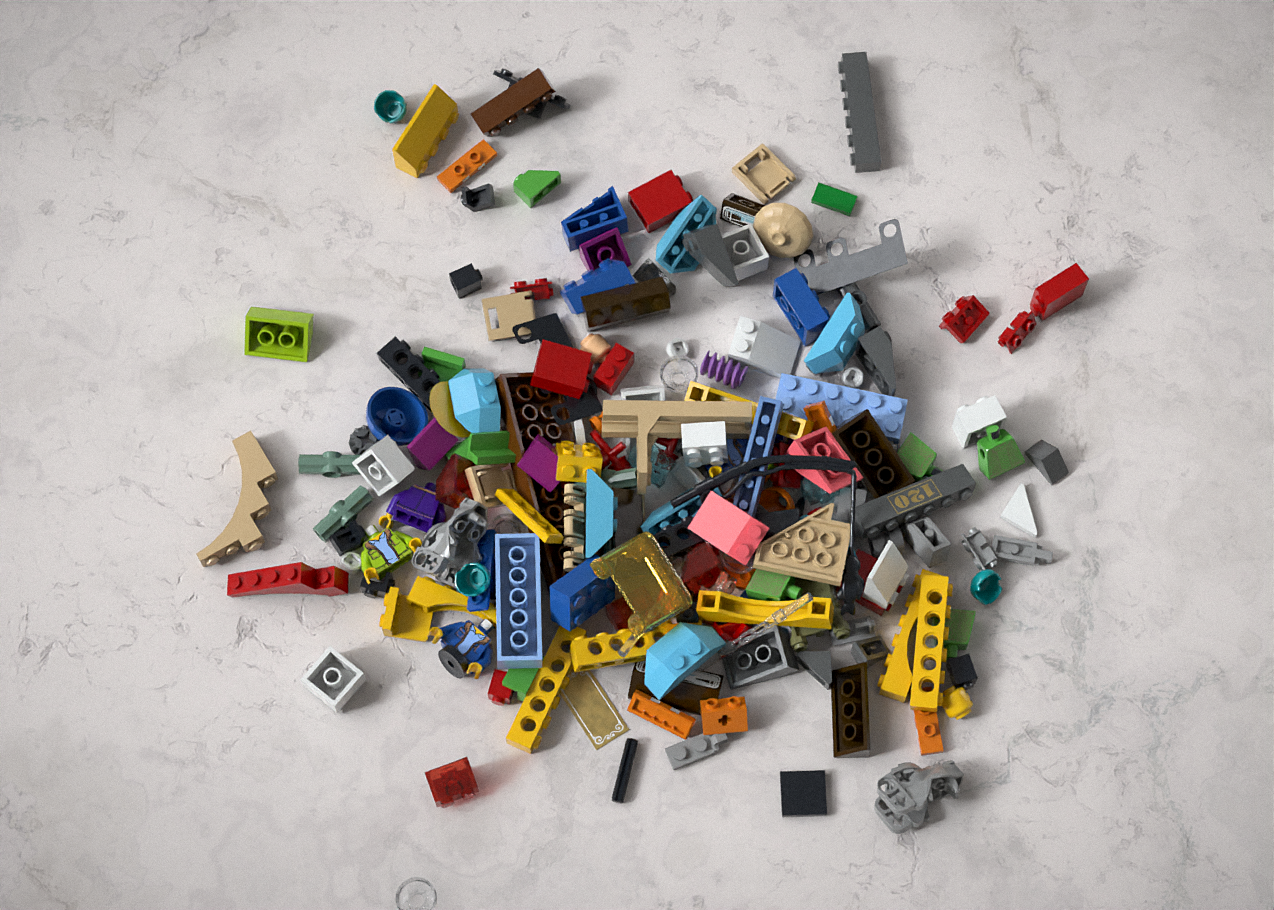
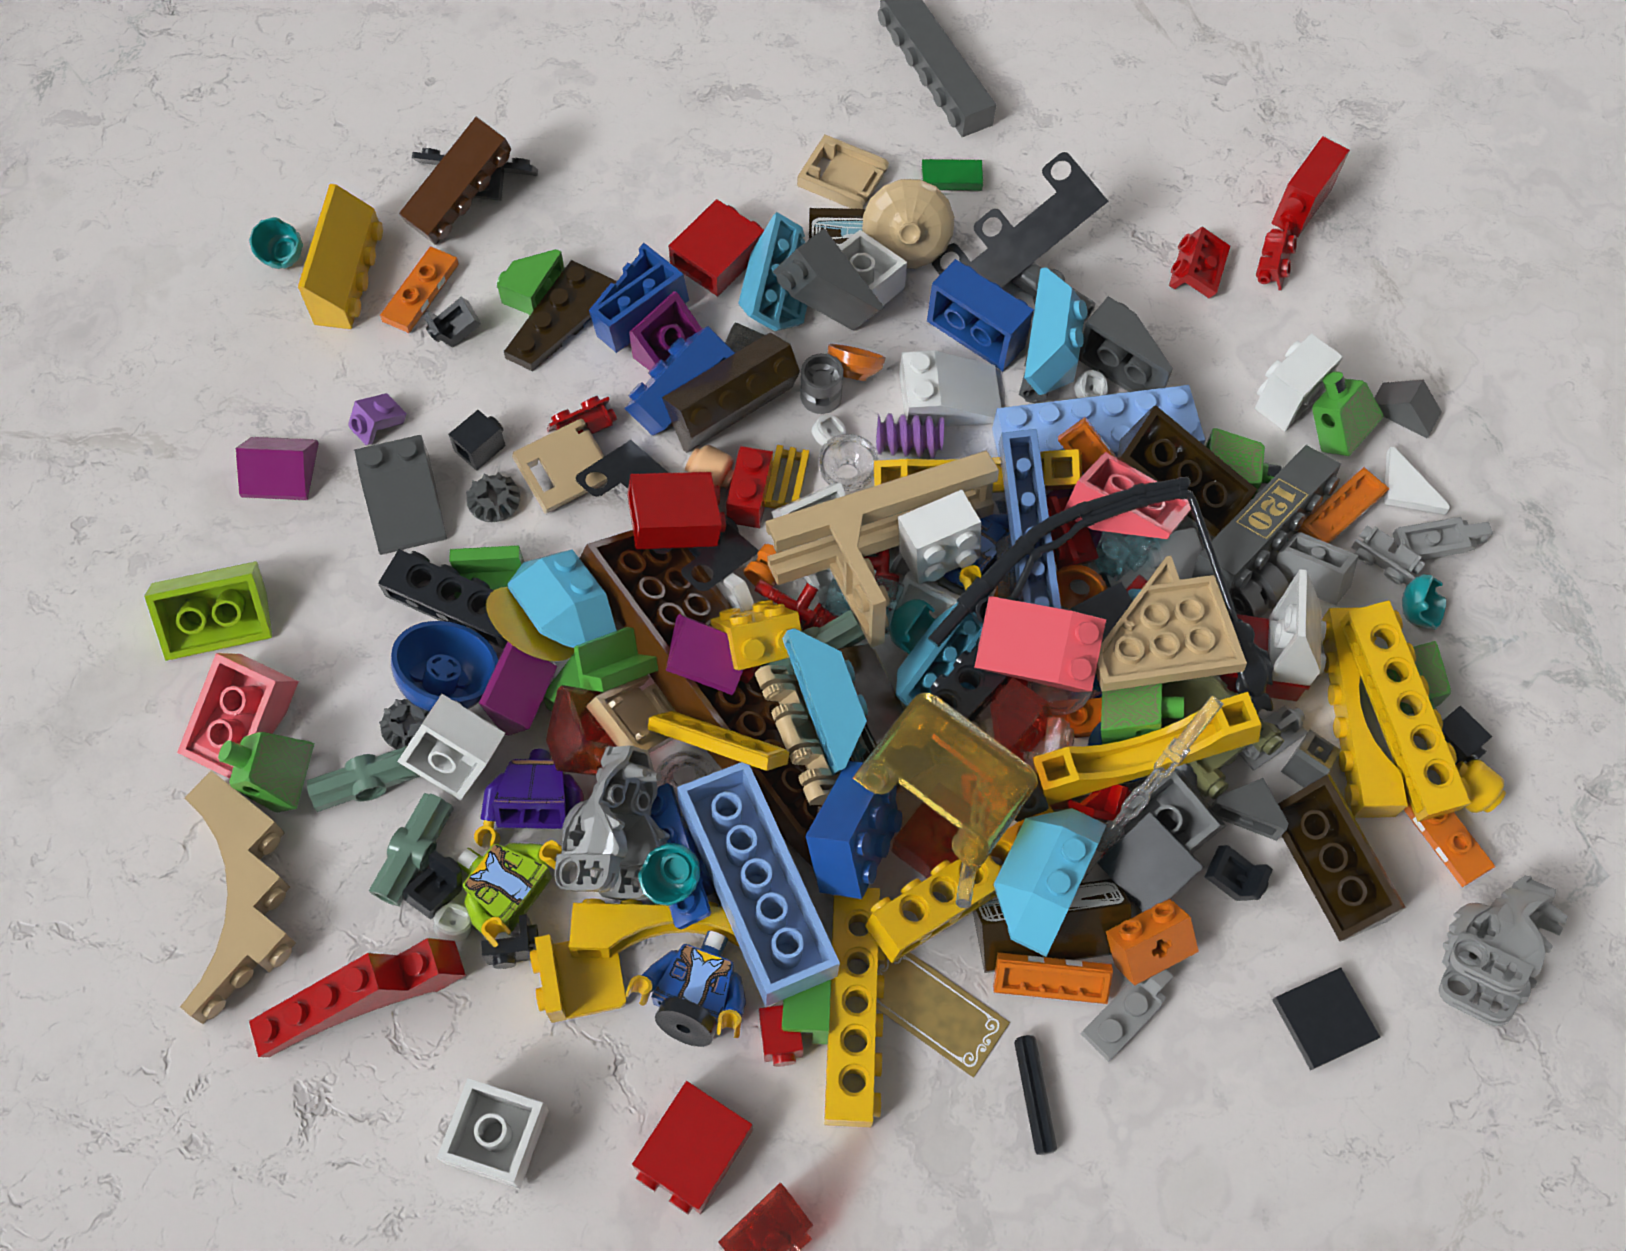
camera: 25 degrees left, 5 degrees down
(273, 401) = (235, 702): none -> coral slope
(281, 441) = (268, 768): none -> bright green torso
(343, 256) = (276, 467): none -> magenta slope
(409, 300) = (400, 494): none -> dark grey slope
(411, 243) = (373, 415): none -> medium lavender bracket
(432, 727) = (691, 1148): none -> red brick
(469, 325) = (507, 497): none -> dark grey gear
(545, 212) = (557, 315): none -> dark brown wing
(649, 355) = (791, 455): none -> yellow tile
(671, 487) = (910, 624): none -> teal hair
(684, 317) = (821, 383): none -> flat silver wheel
(712, 309) = (857, 362): none -> orange piece
(743, 673) = (1150, 863): none -> tile
(791, 699) = (1237, 875): none -> black bracket
(969, 511) = (1344, 507): none -> orange plate

